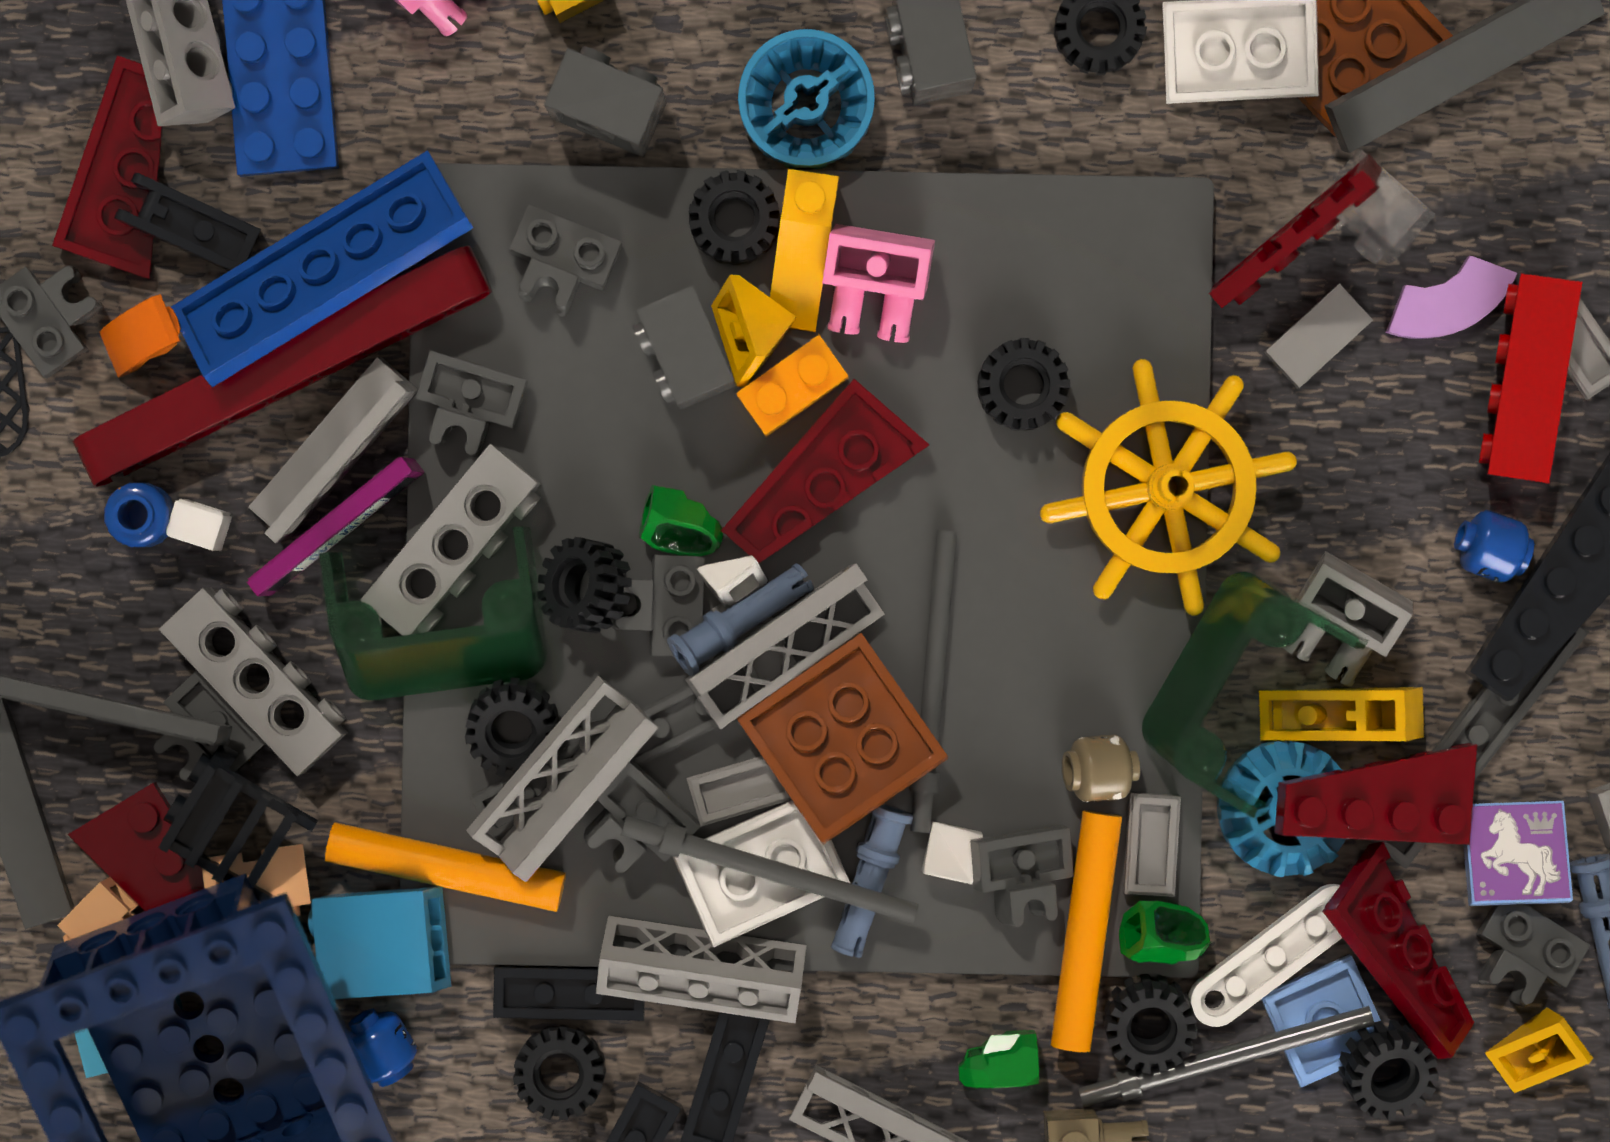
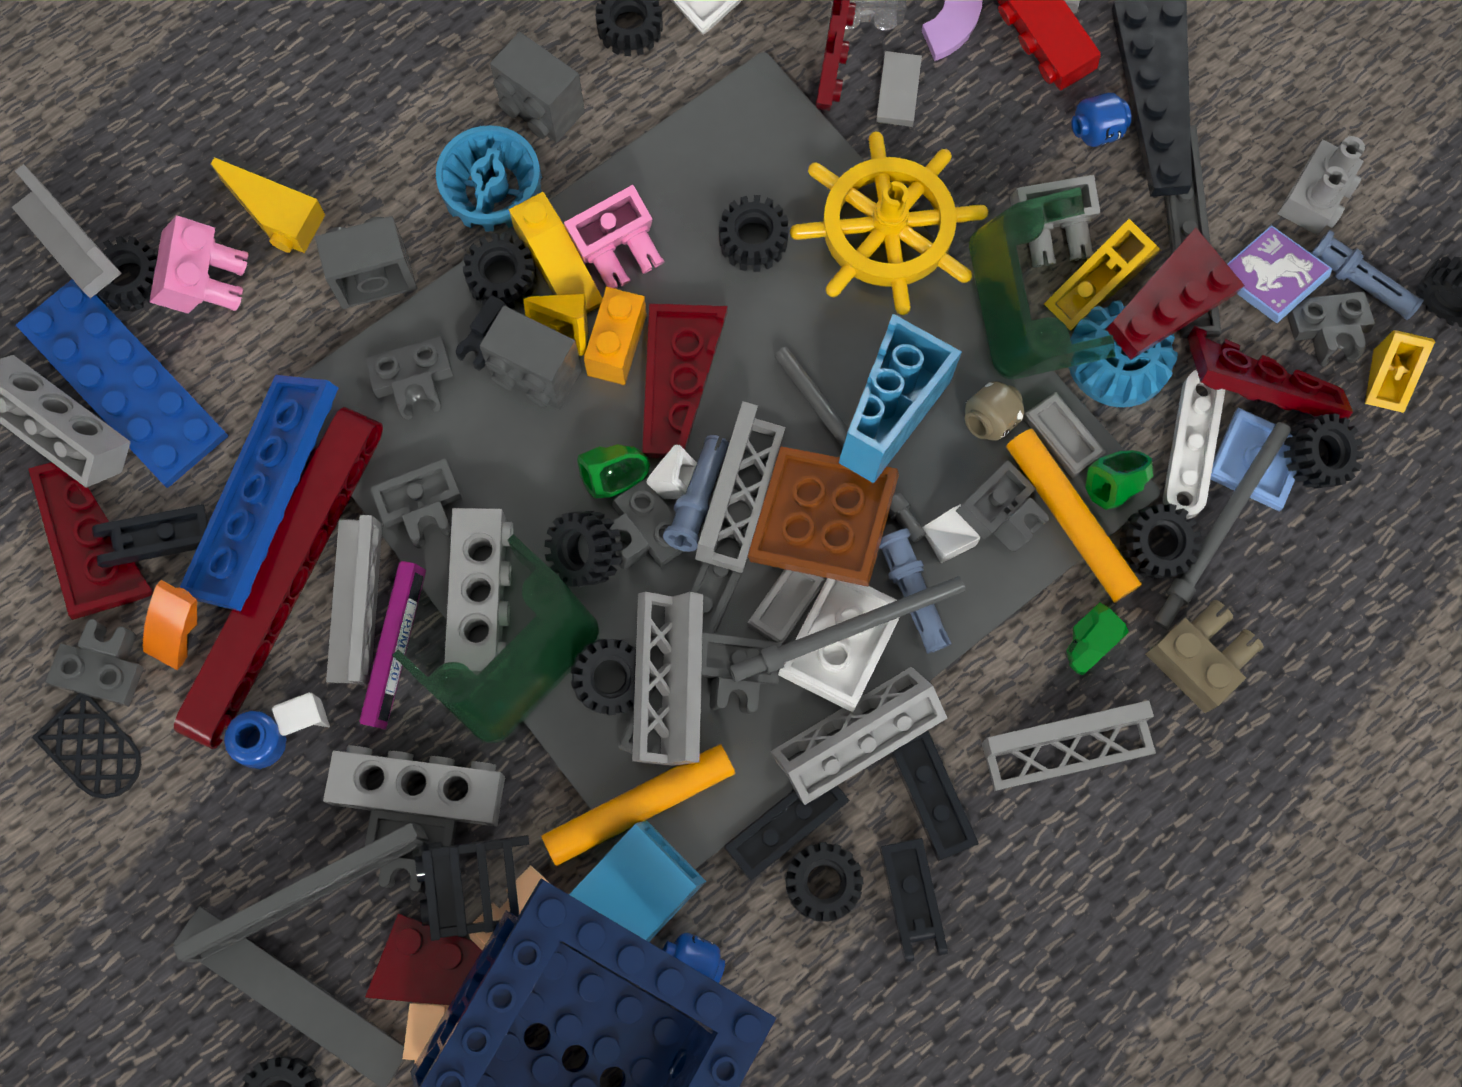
camera: 40 degrees left, 15 degrees down
(679, 271) = (479, 329): none -> black plate
(1017, 678) = (899, 392): none -> dark azure wedge

